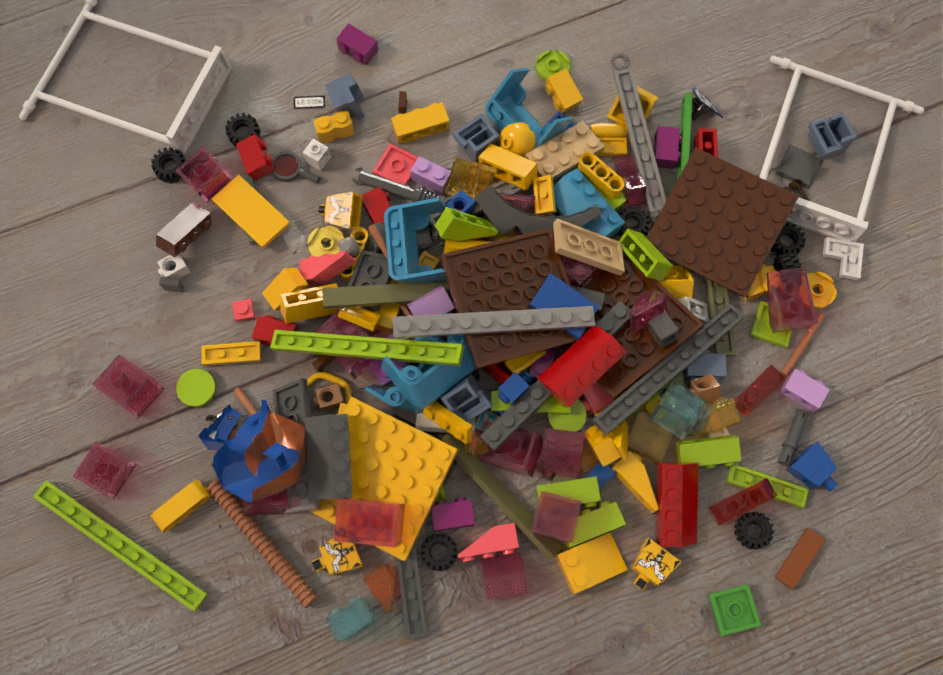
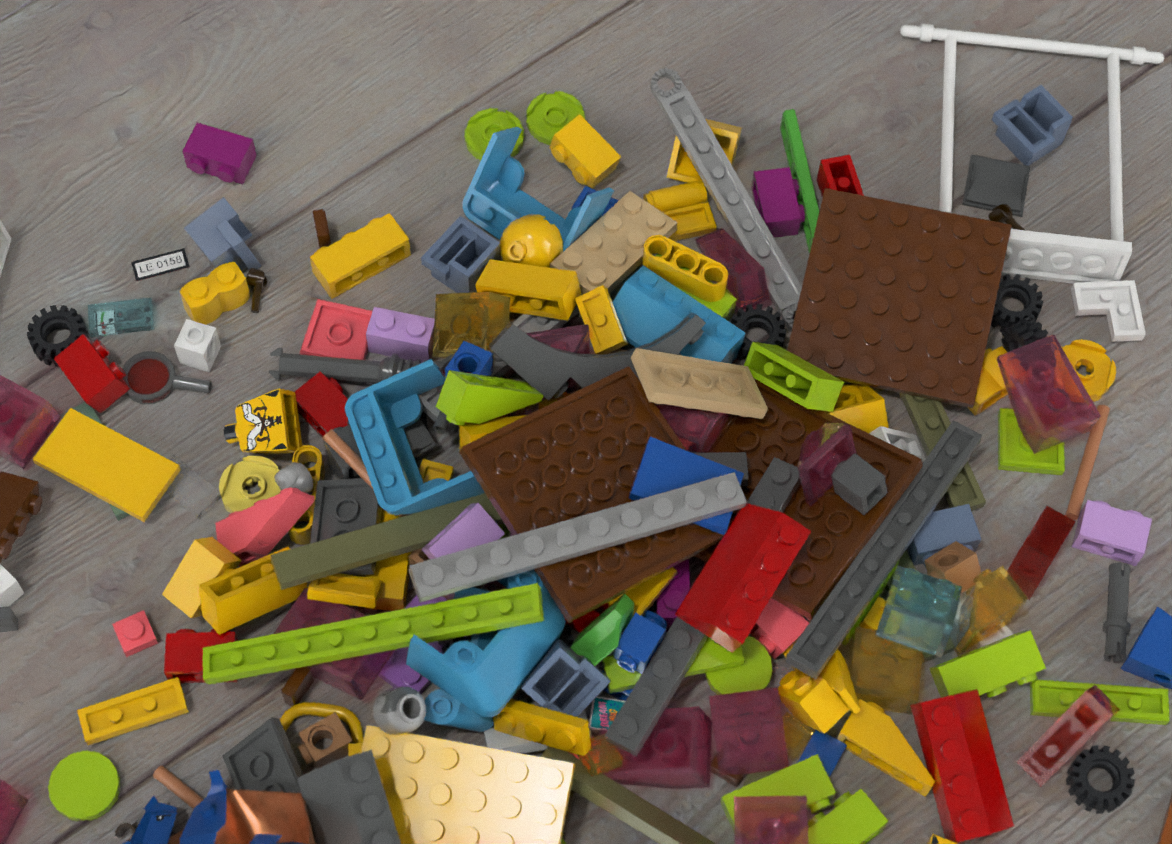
camera: 15 degrees left, 10 degrees down
(280, 127) = (121, 317): none -> clear light blue tile
(360, 124) = (258, 280): none -> dark brown hand
(370, 394) = (399, 710): none -> light grey head
(493, 379) = (604, 632): none -> bright green slope
(514, 60) = (484, 124): none -> lime tile
(701, 103) = (814, 128): black shield -> none

